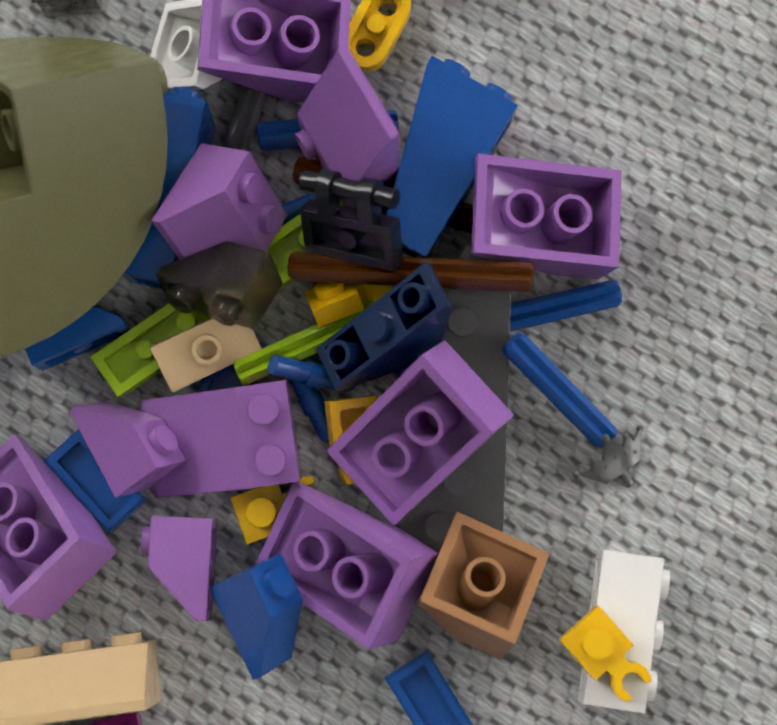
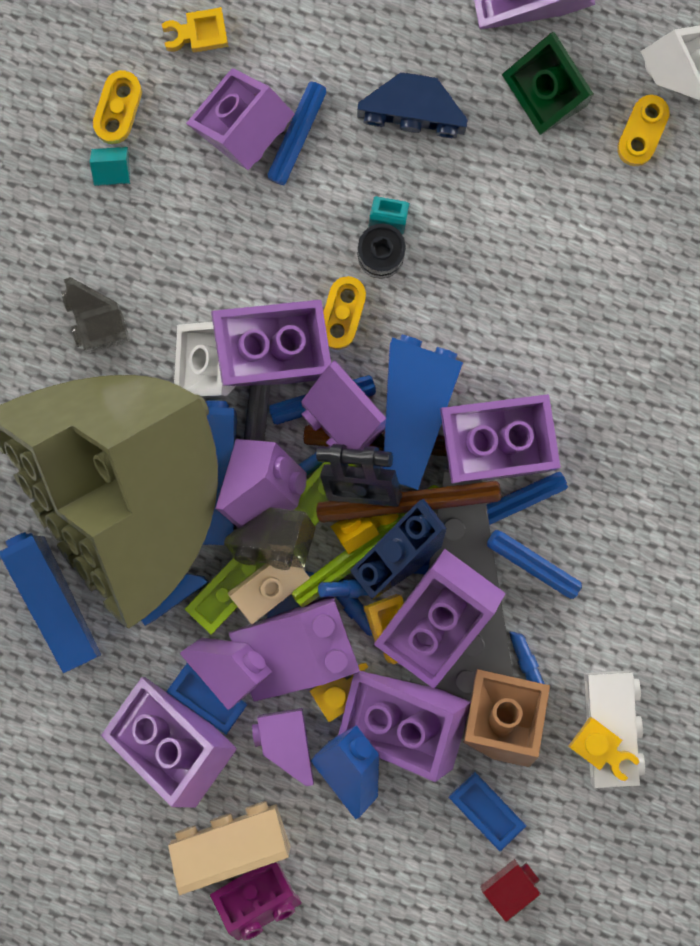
camera: 15 degrees left, 5 degrees up
(524, 518) = (527, 661): none -> blue piece
(615, 460) = (584, 605): dark grey piece -> none

